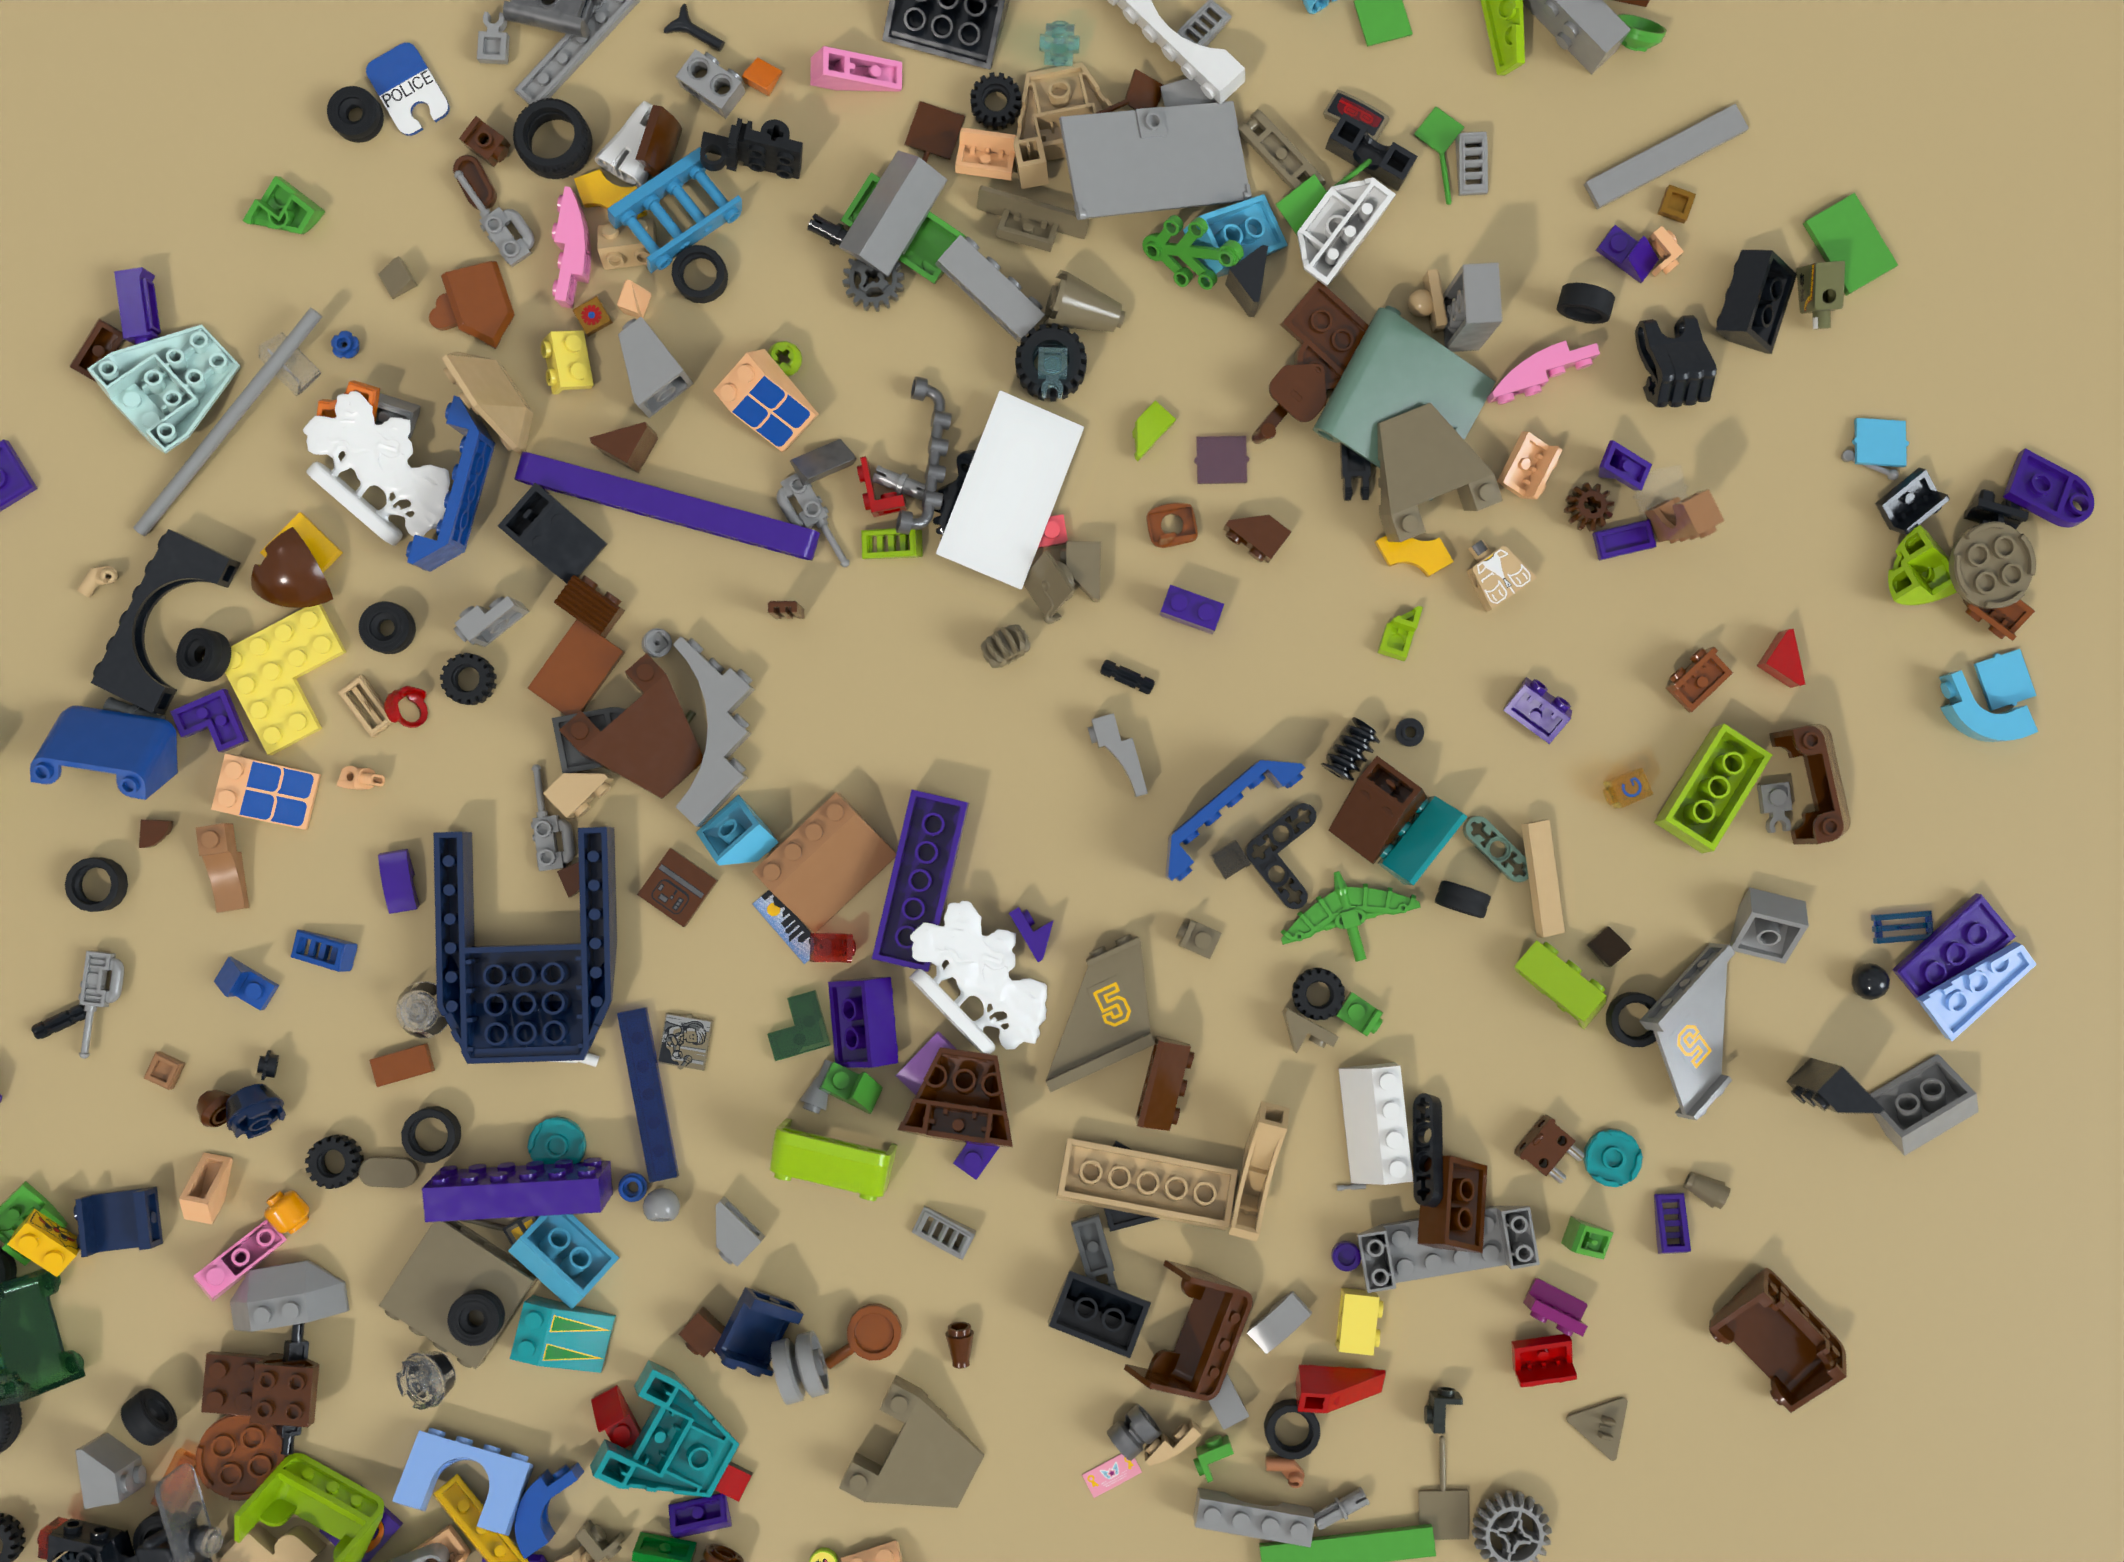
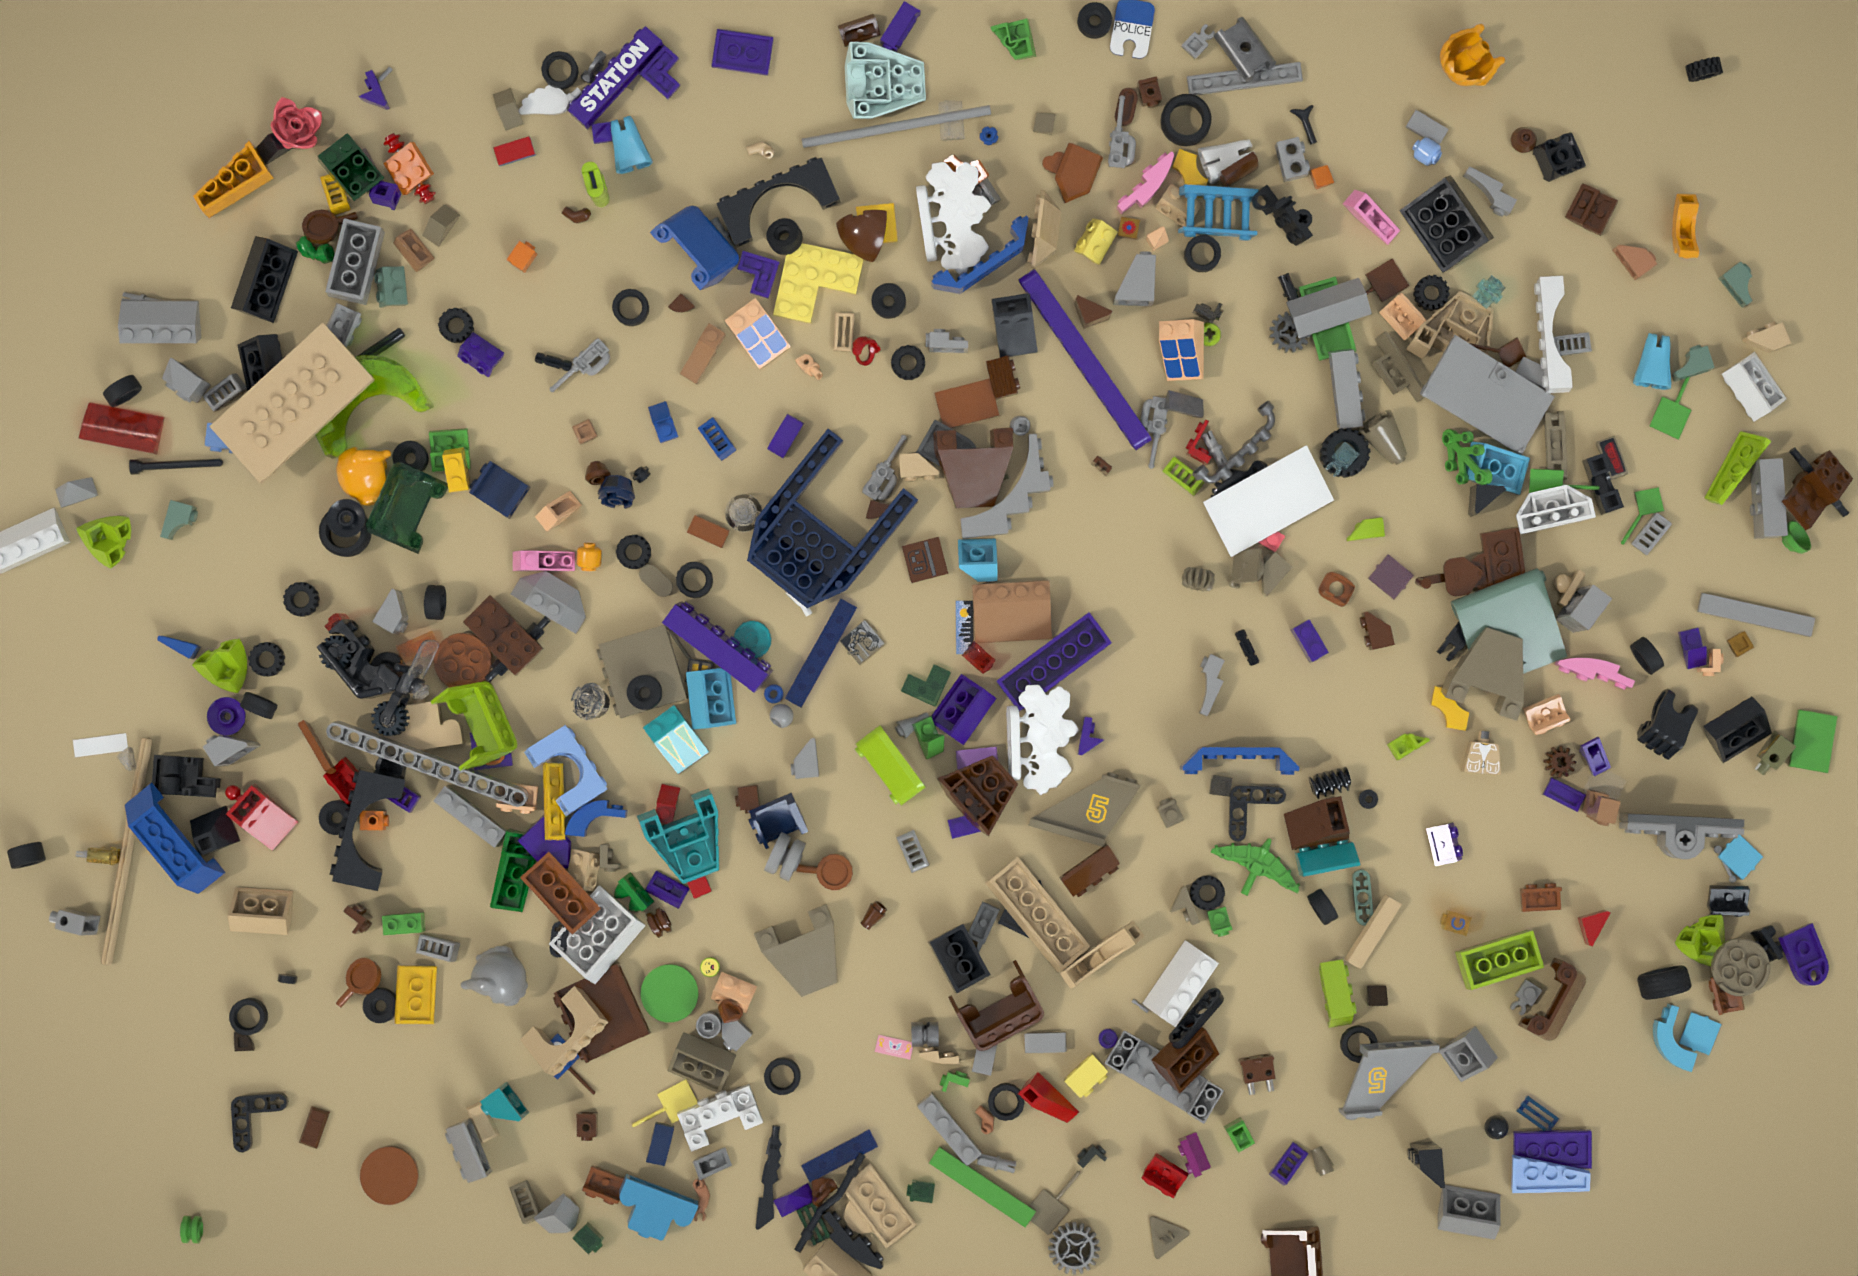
camera: 40 degrees right, 0 degrees up
(759, 338) = (1204, 311): none -> clear smoke bracket
(1612, 1157) = (1287, 1105): teal tile -> none
(1800, 470) = (1672, 828): none -> light grey piece
(1922, 656) = (1664, 982): none -> black tyre

